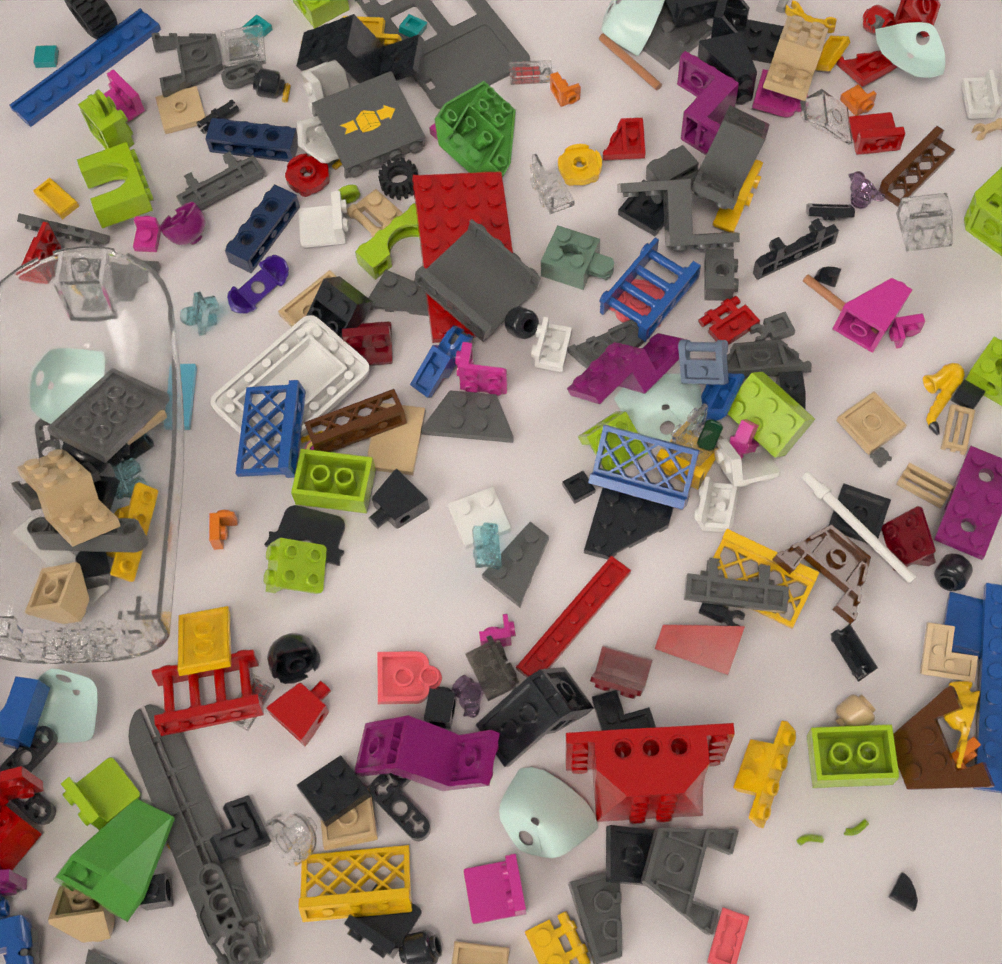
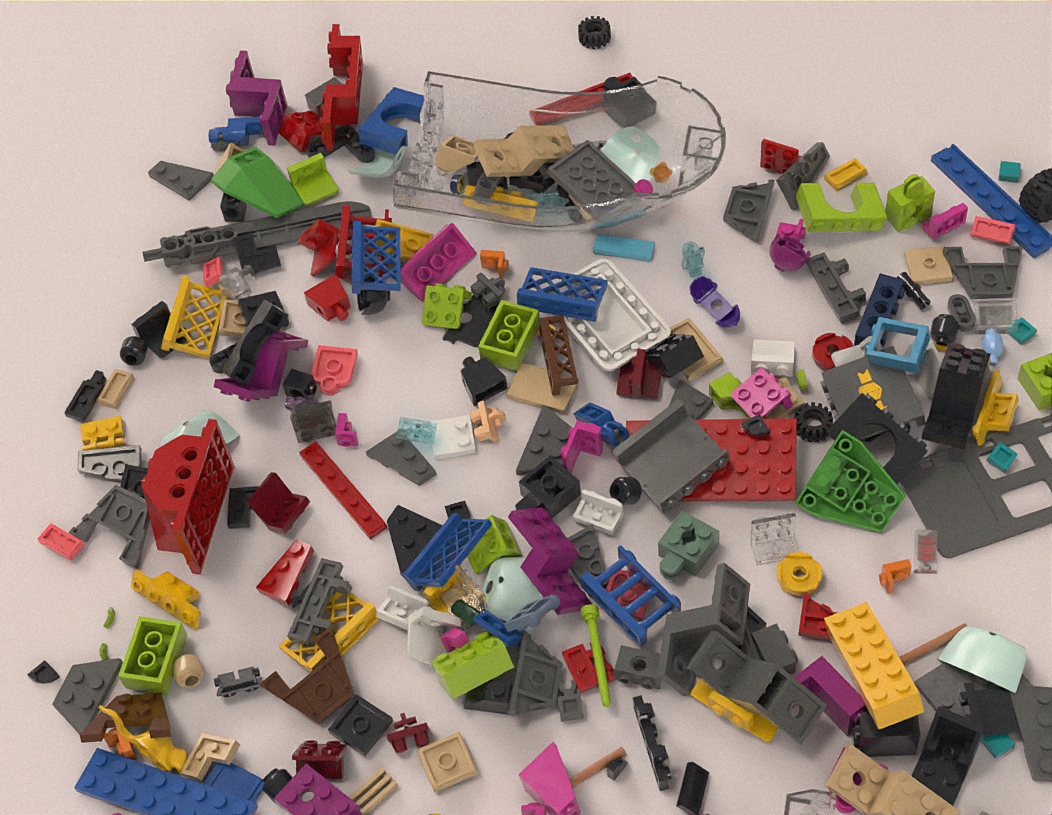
camera: 105 degrees right, 10 degrees down
(102, 343) = (661, 172): none -> clear orange plate
(104, 593) = (457, 184): none -> dark blue tile
(115, 363) = (643, 186): none -> dark pink plate
(131, 58) = (992, 230): none -> coral plate
(224, 738) = (323, 240): none -> red bracket
(227, 597) = (436, 261): none -> dark pink slope
(250, 667) = (359, 259): none -> blue fence
(262, 521) = (491, 288): none -> dark grey hips
(274, 880) = (212, 271): none -> coral plate
(281, 45) = (992, 344): none -> light blue plant
(284, 207) = (777, 312): dark blue brick -> none
(321, 70) = (911, 363): none -> dark azure window
(384, 214) = (761, 394): none -> dark pink bracket
(405, 118) = (864, 413): none -> black arch
(430, 206) = (755, 426): none -> black tile
(446, 487) = (490, 421): none -> light nougat hips
(449, 759) = (243, 359): none -> black arch
(495, 891) = (154, 403): dark pink bracket -> none
(533, 709) = (273, 446): black bracket -> none
(546, 395) = (540, 484): none -> black brick
(679, 323) = (590, 615): none -> lime piece
(687, 66) = (874, 665): none -> yellow brick
(823, 492) = (386, 694): white bar -> none
(854, 465) = (419, 732): none -> dark red hips
(880, 457) = (412, 762): dark grey piece -> none
(913, 831) = (85, 691): none -> dark grey wing

